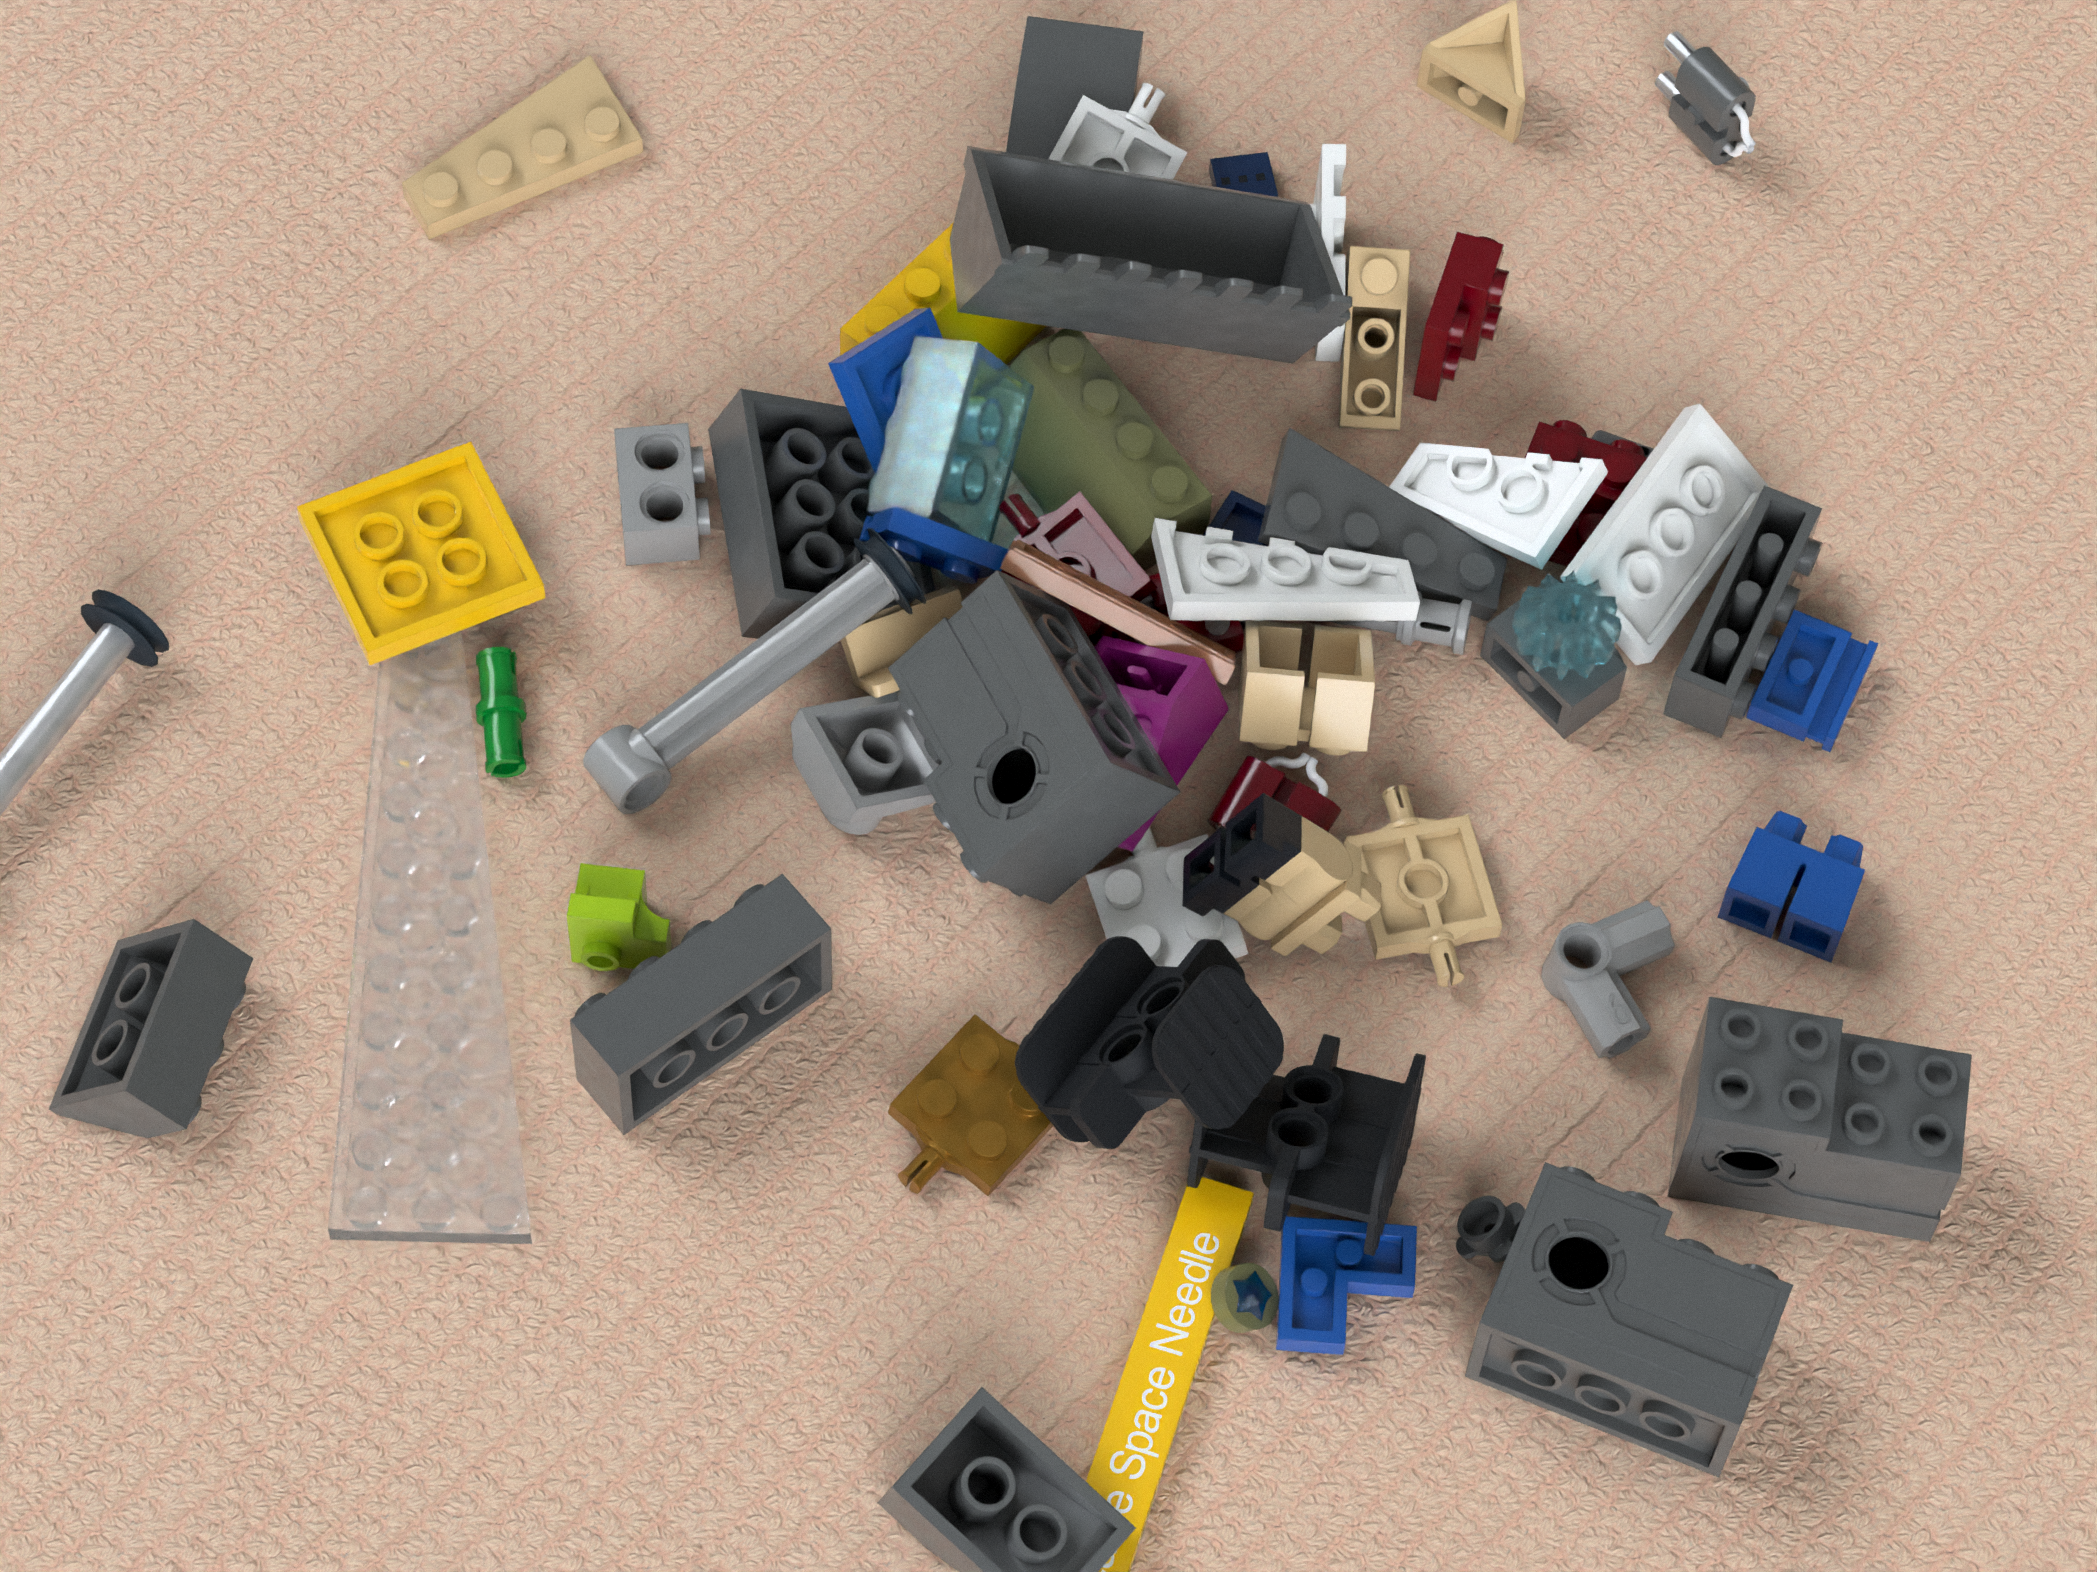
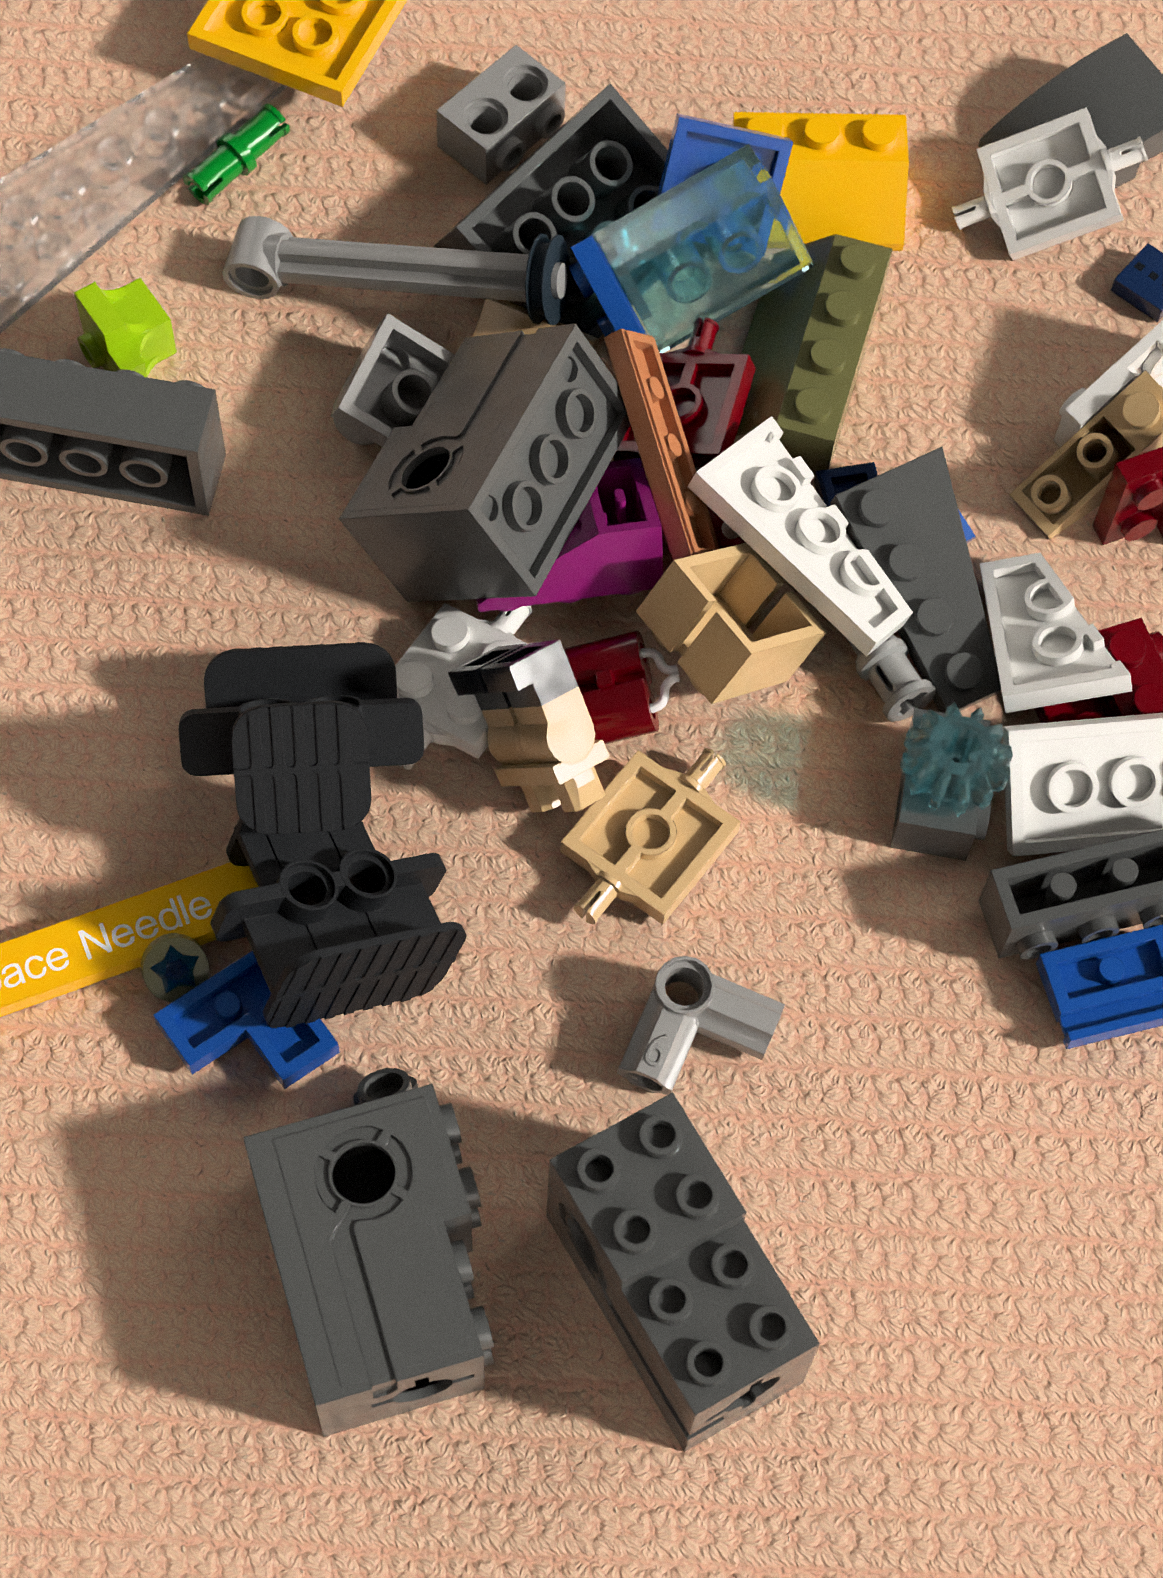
camera: 50 degrees right, 5 degrees up
(969, 1111) = (167, 665): pearl gold plate -> none
(1141, 258) = (980, 235): dark grey piece -> none
(1823, 883) = (901, 1110): blue hips -> none

